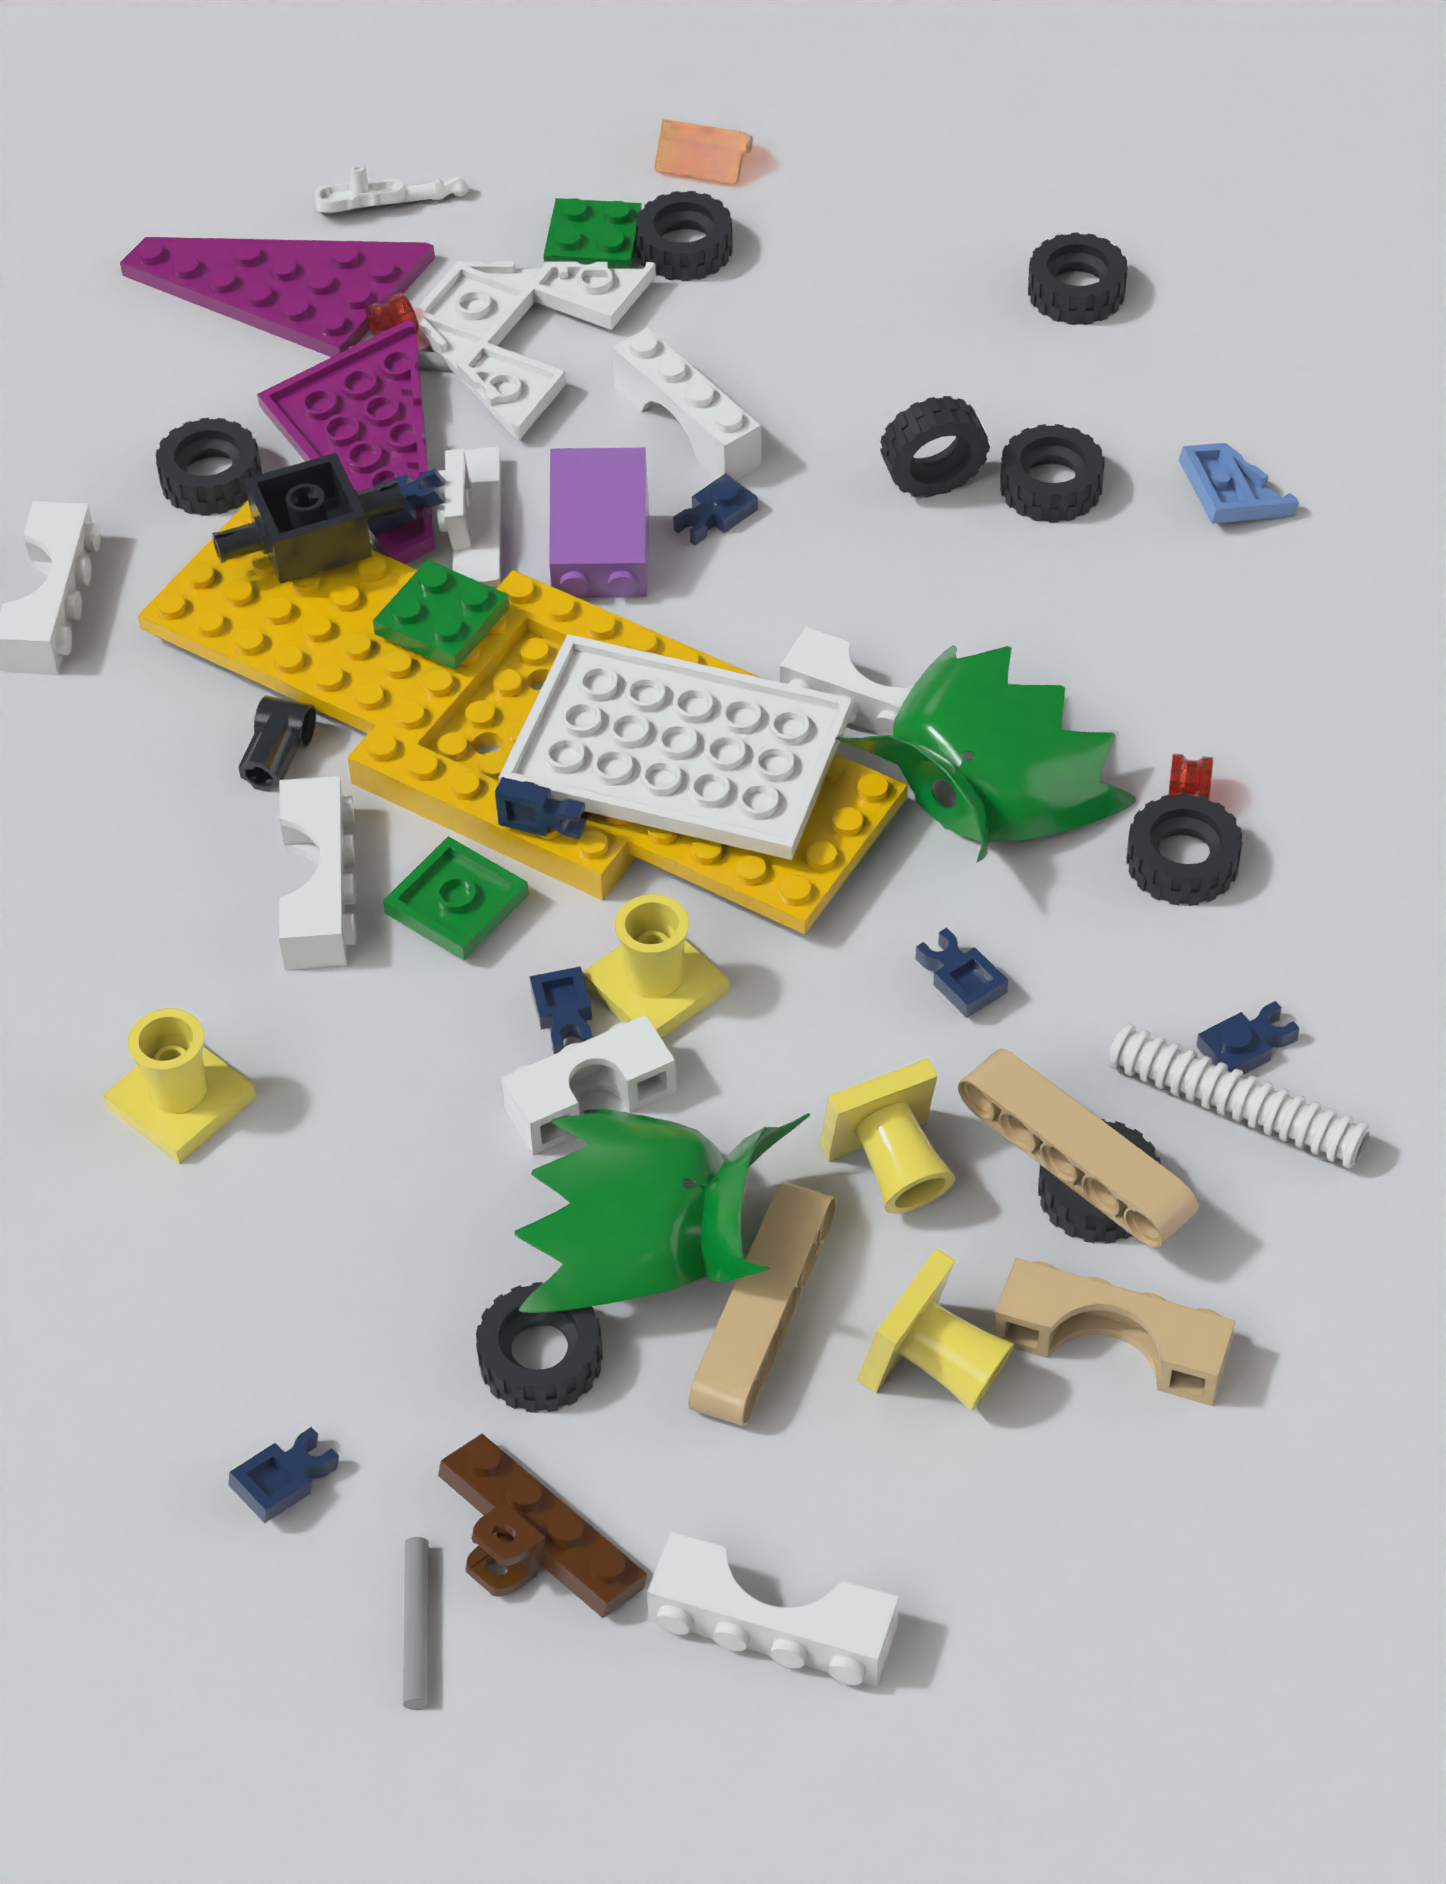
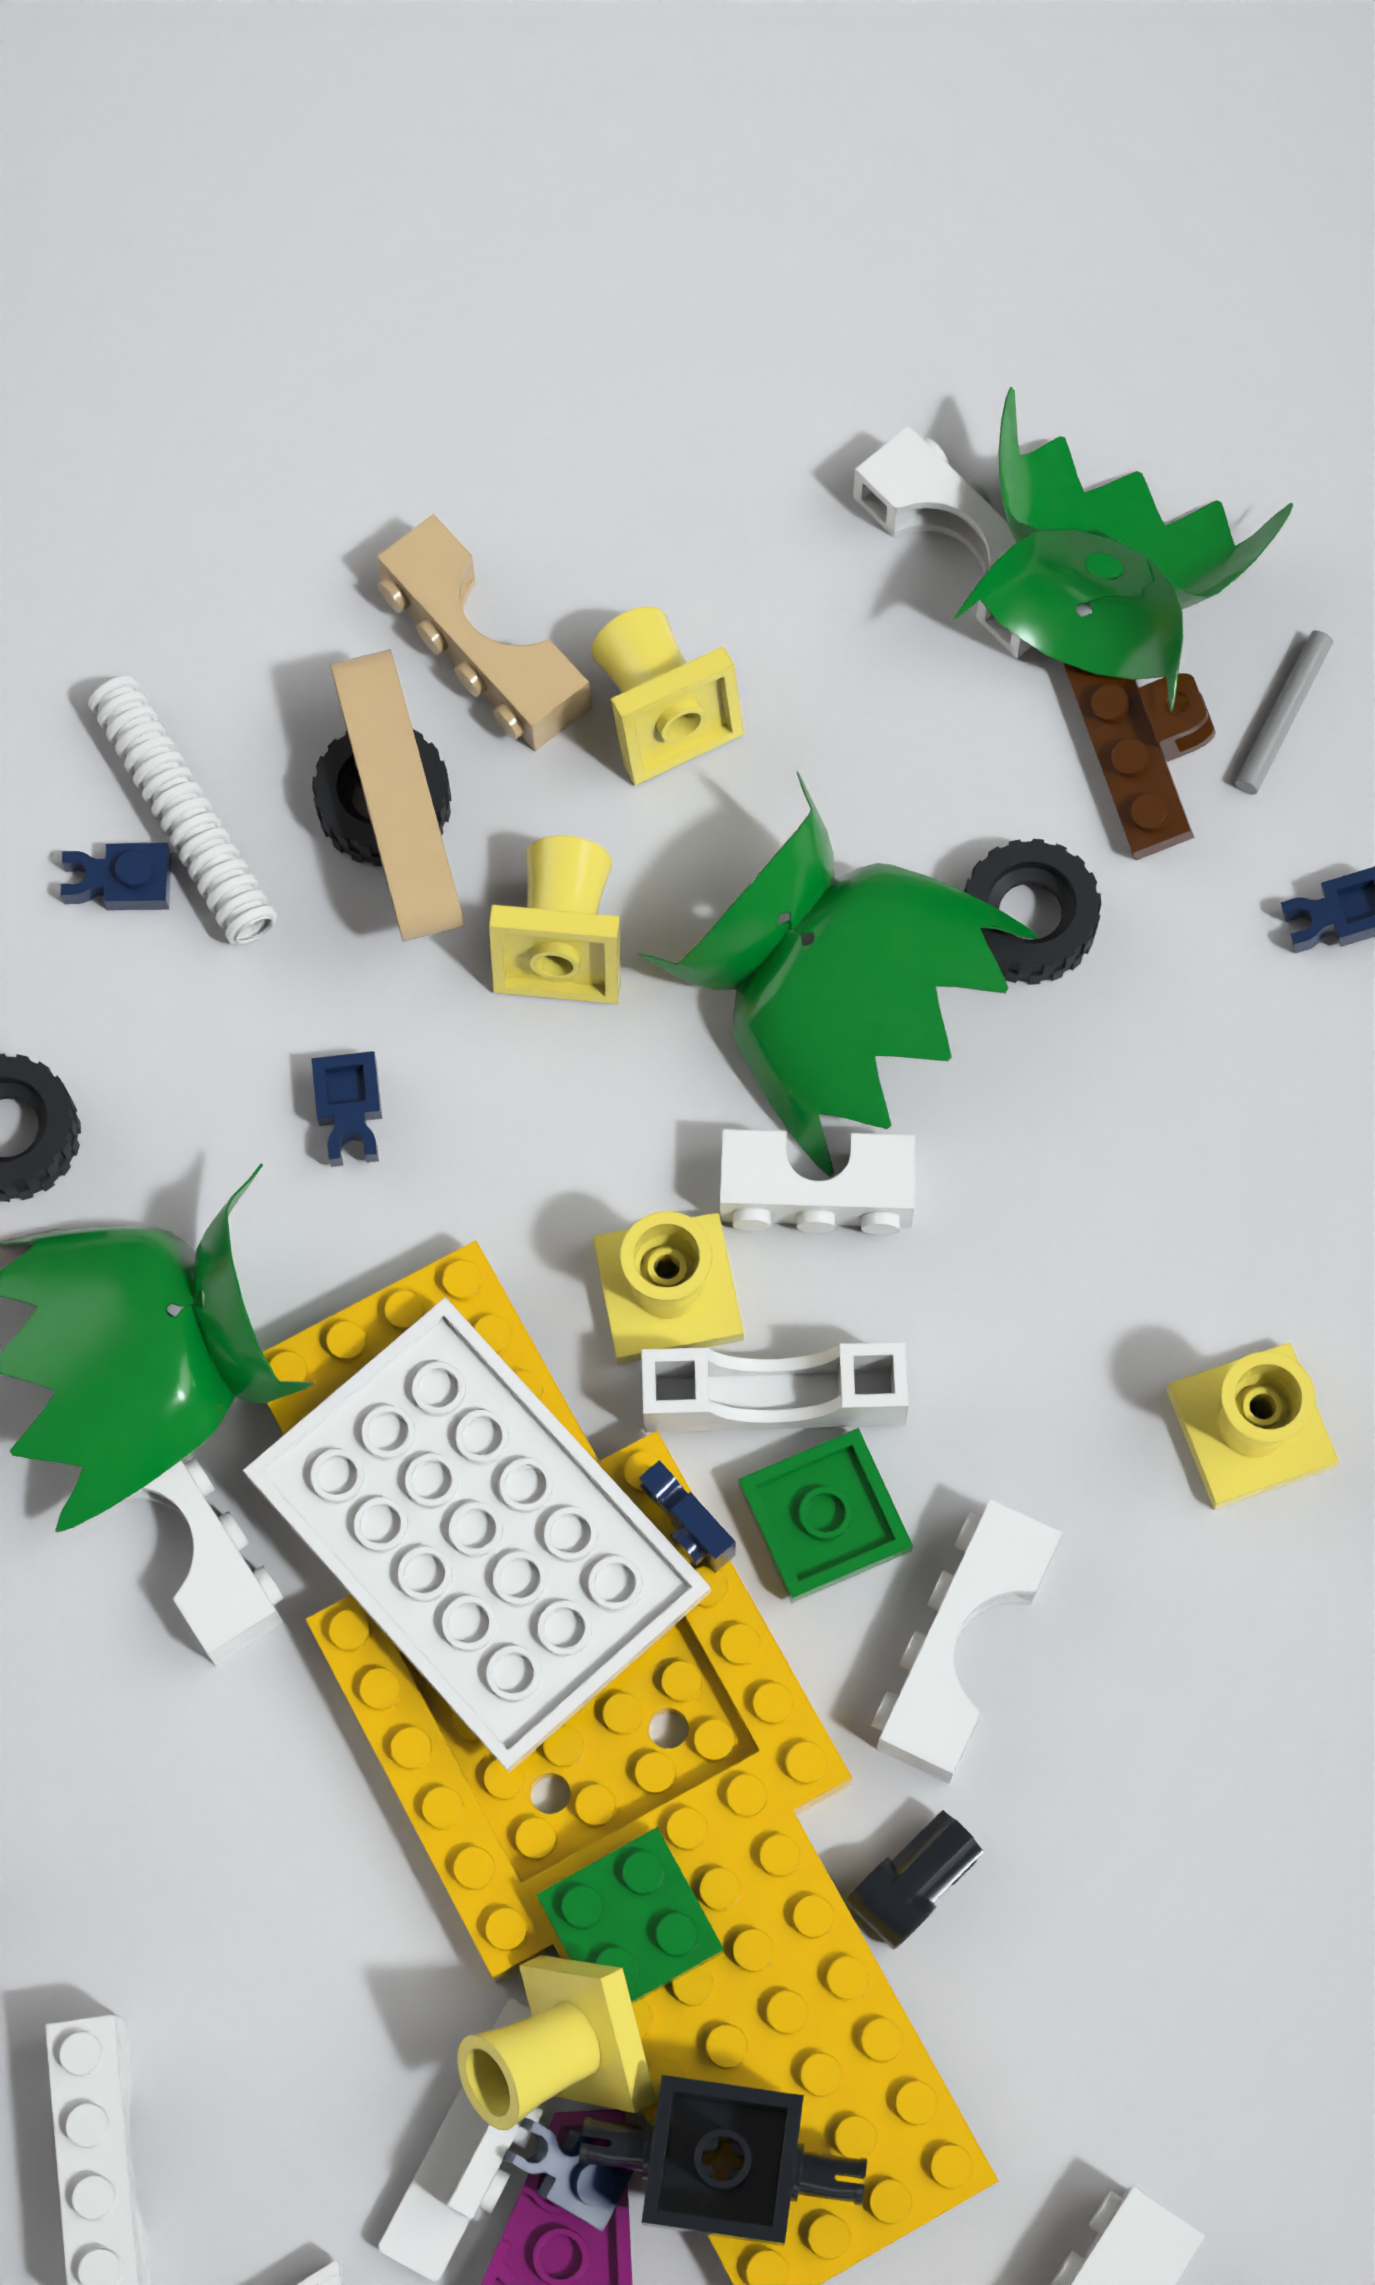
camera: 150 degrees left, 20 degrees up
(446, 523) = (572, 2047): none -> light yellow plant
(482, 964) = (826, 1389): none -> white arch
(562, 1005) = (787, 1302): dark blue plate -> none
(599, 522) = (347, 1982): medium lavender slope -> none
(639, 1671) = (1107, 552): none -> green piece
(720, 505) = (157, 1974): dark blue plate -> none
(762, 1304) = (849, 797): tan beam -> none

